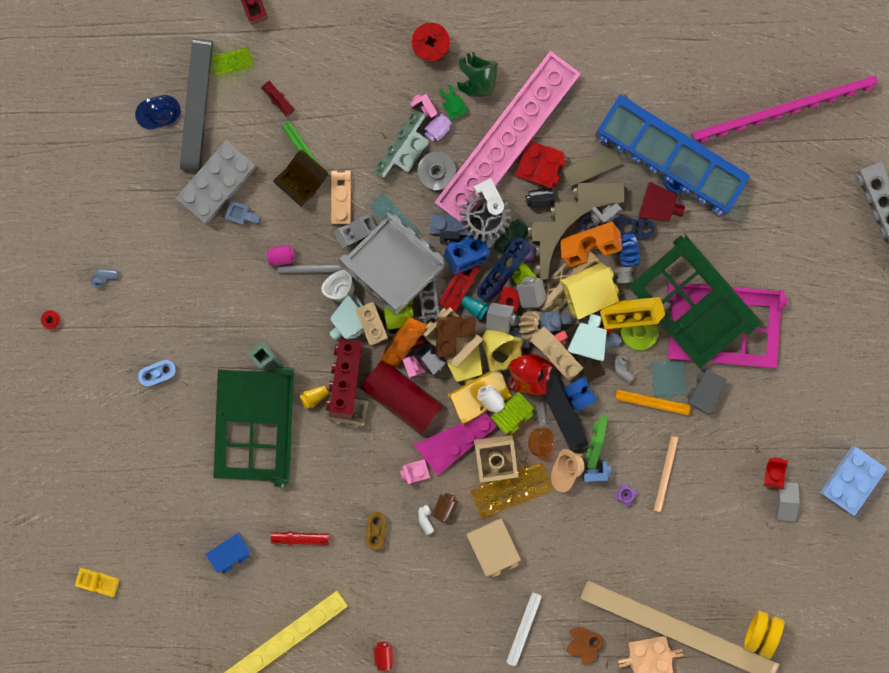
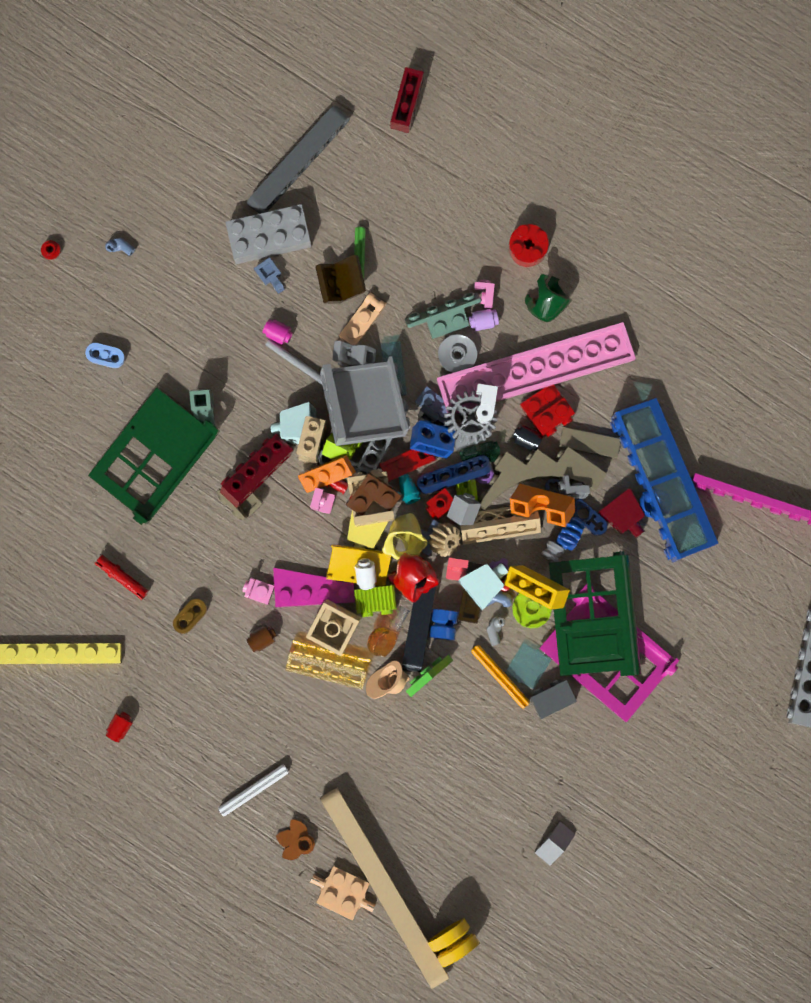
camera: 35 degrees right, 5 degrees down
(157, 111) = (263, 145): clear blue piece -> none
(228, 553) = (54, 547): blue brick -> none
(232, 61) = (353, 146): clear neon green plate -> none
(277, 98) = (369, 203): dark red pin -> none
(313, 397) = (219, 467): yellow cone -> none
(338, 286) = (306, 390): white helmet -> none
(401, 396) = (292, 519): dark red brick -> none
(423, 520) = (236, 635): white arm -> none
(428, 360) = (337, 504): black brick -> none
(454, 105) = (510, 311): green plate -> none
(493, 548) = (278, 702): tan brick -> none
(500, 317) = (422, 511): light grey brick -> none
(553, 321) = (464, 546): sand blue plate -> none
(556, 353) = (447, 575): tan arch -> none
(590, 290) = (514, 543): light yellow brick -> none
(594, 475) = (407, 702): medium blue bracket -> none
(626, 499) = (420, 743): medium lavender plate -> none
(665, 474) = (468, 745): light nougat bar -> none
(775, 473) = (562, 811): red bracket -> none
(853, 480) = (624, 865): light blue brick -> none

